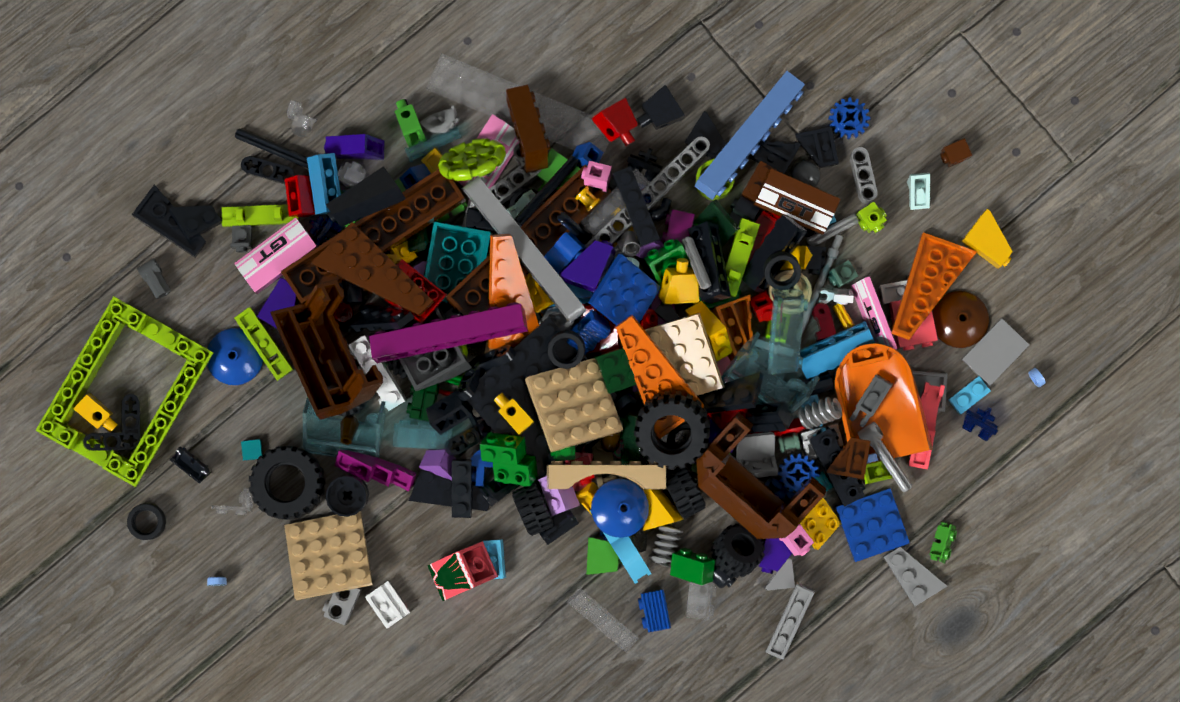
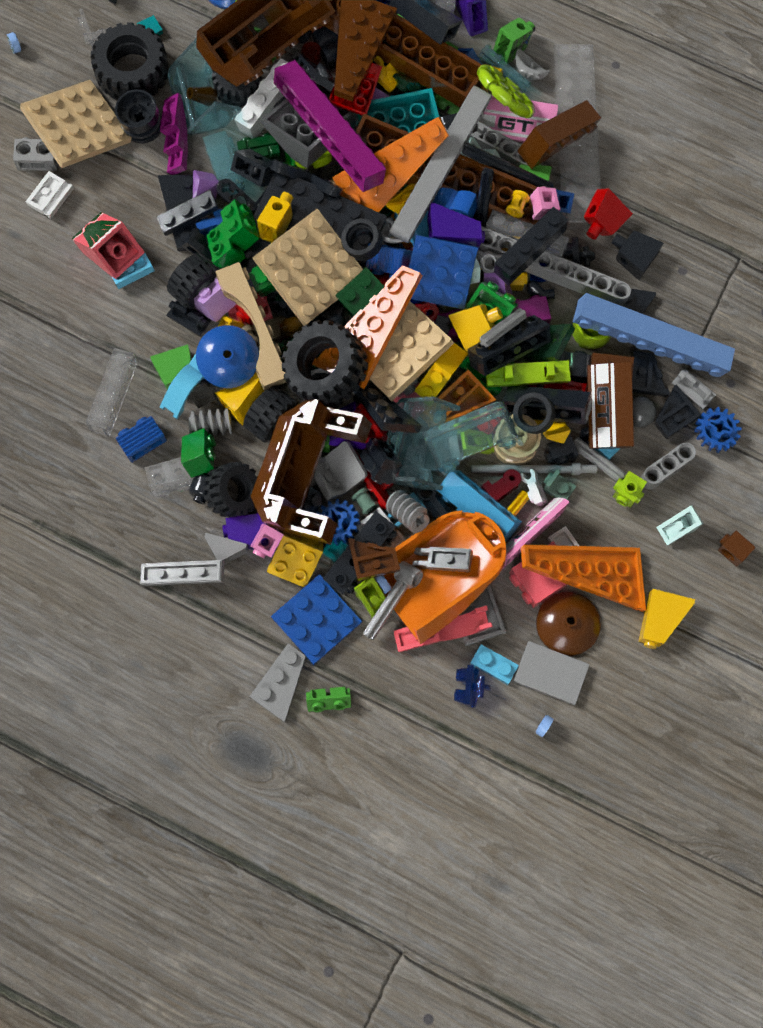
camera: 60 degrees right, 10 degrees down
(803, 120) = (694, 388): none -> light grey hinge

